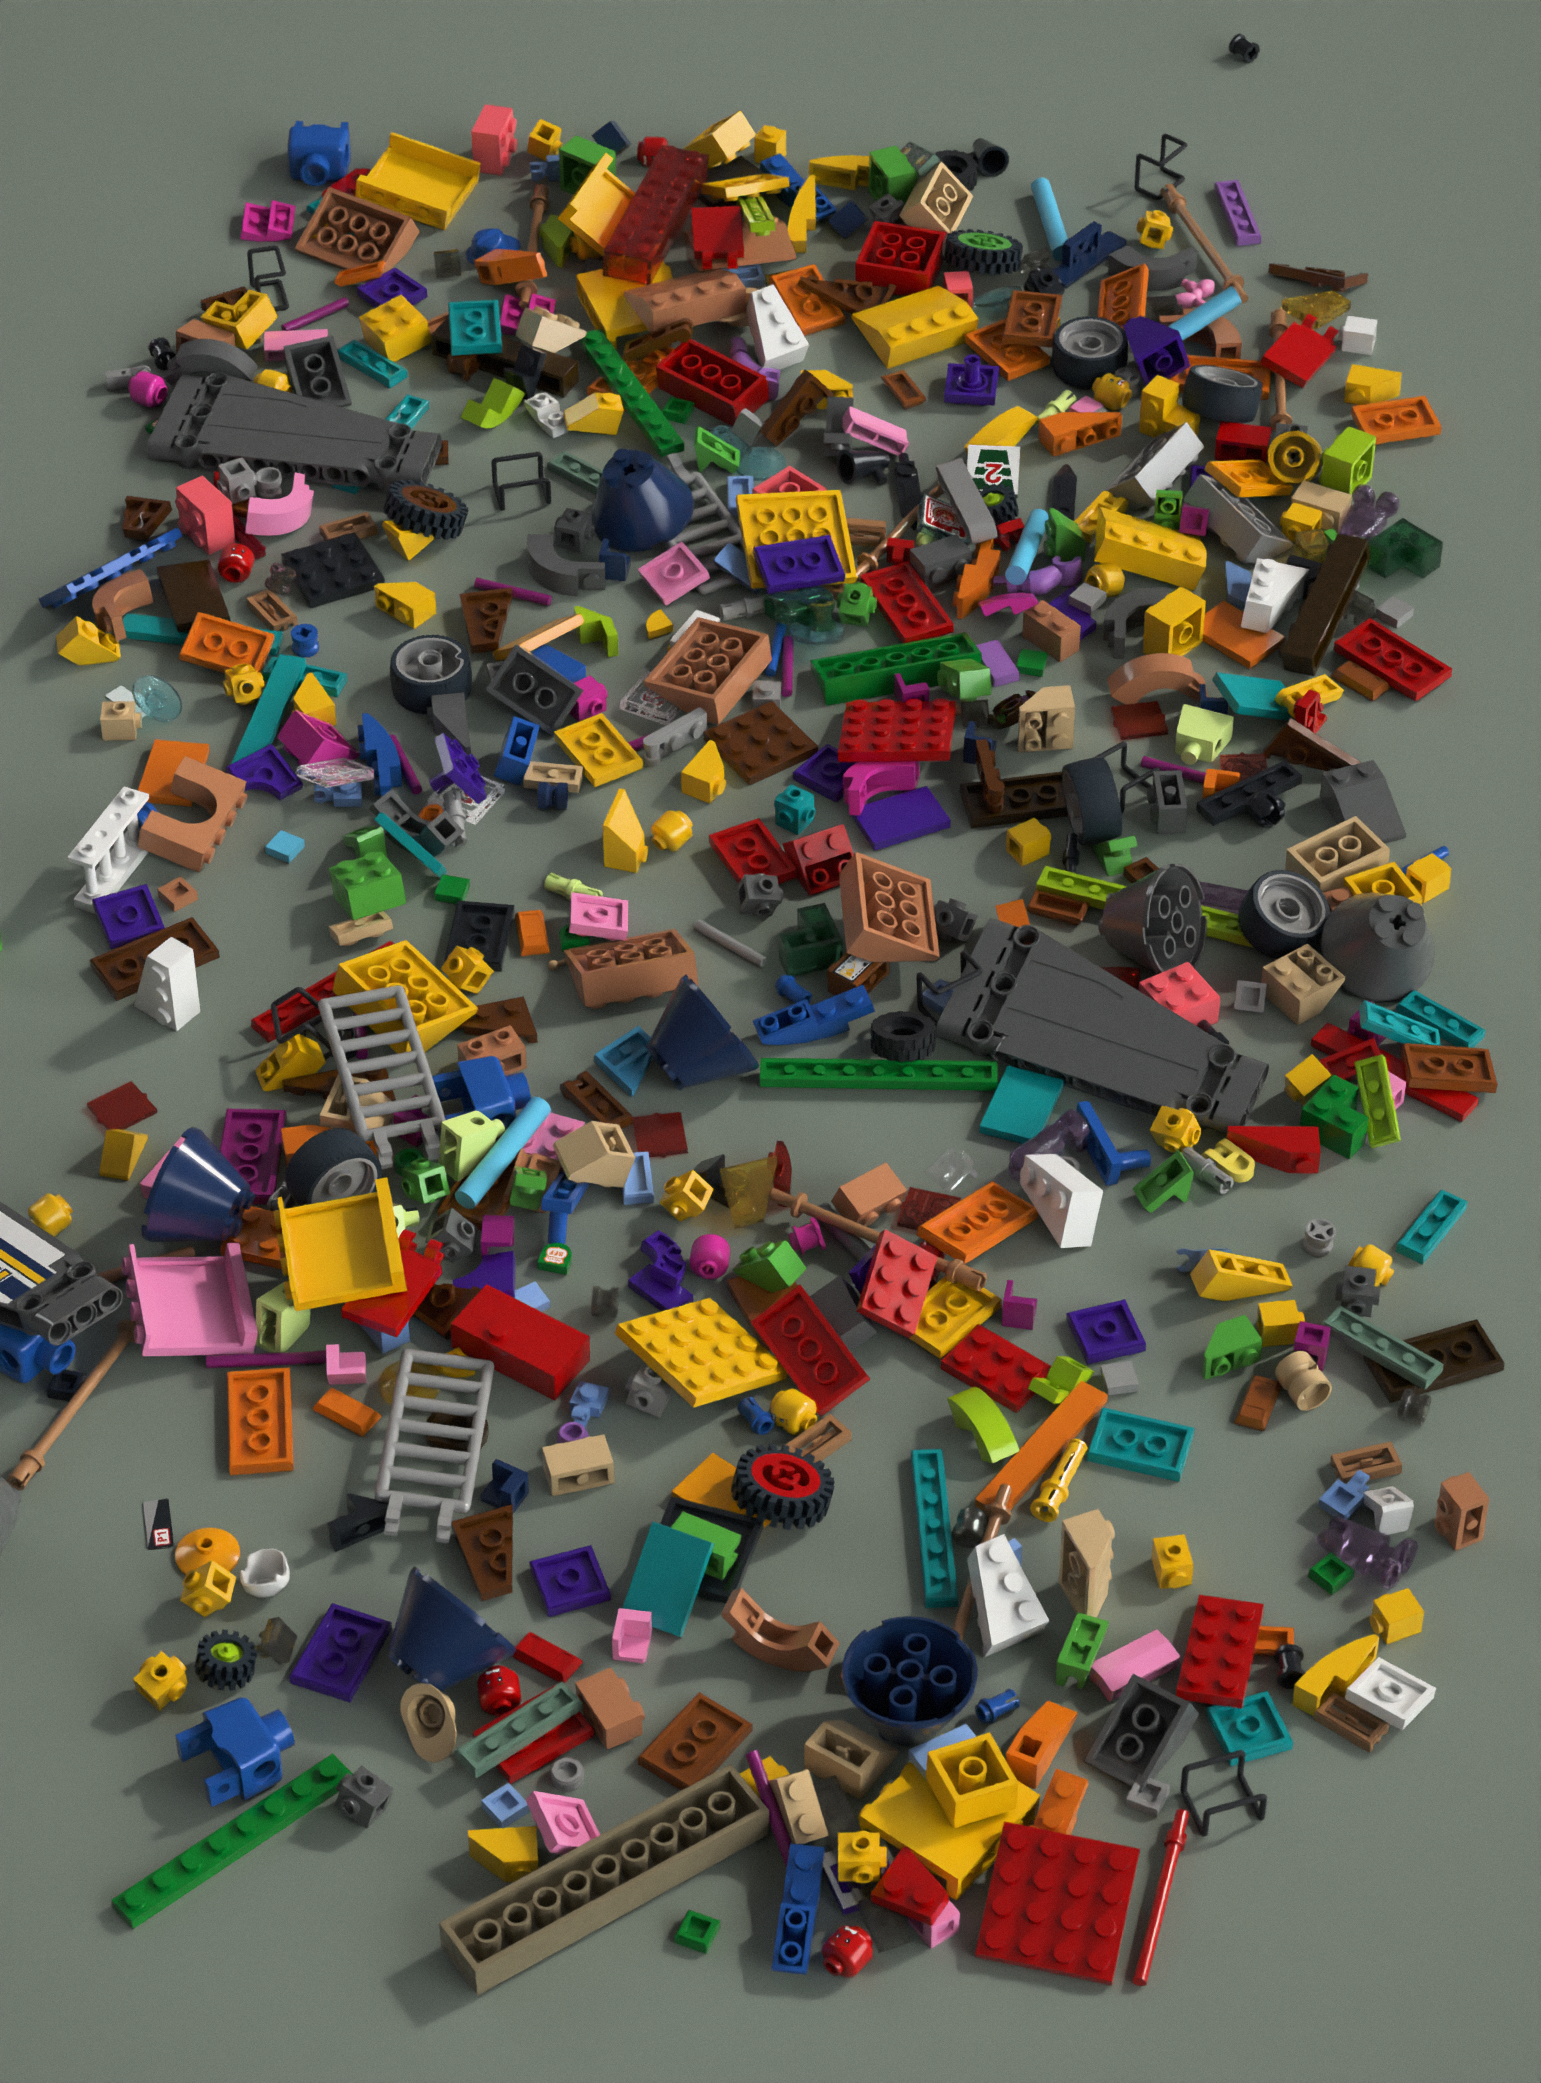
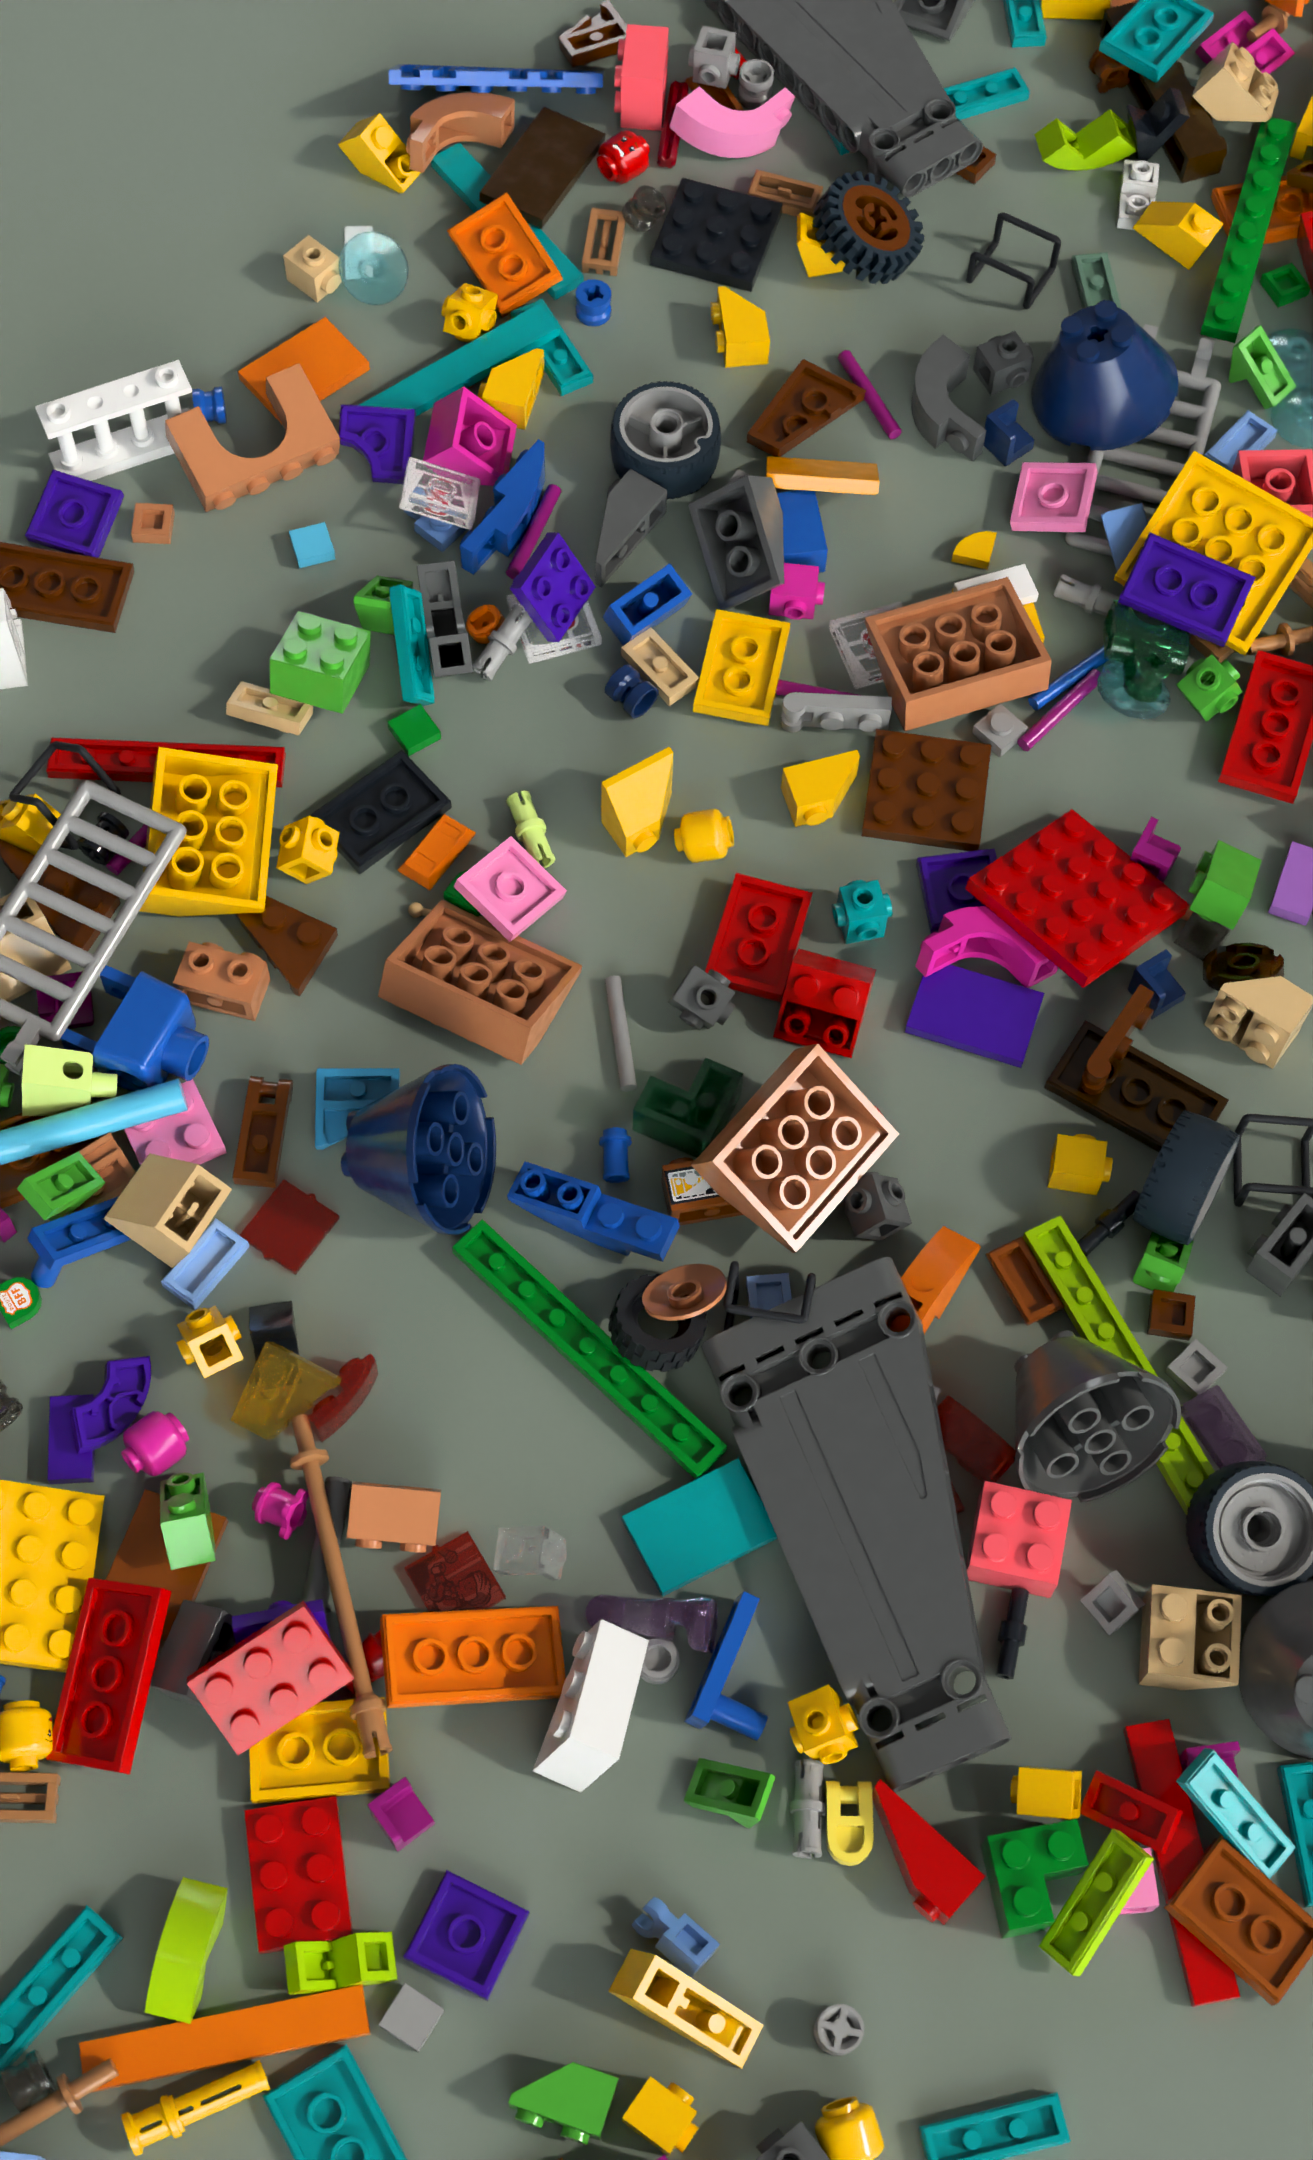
camera: 40 degrees right, 20 degrees up
(597, 628) = (899, 505): lime slope -> none
(872, 671) = (1191, 806): green arch -> none
(907, 1004) = (684, 1292): none -> nougat dish

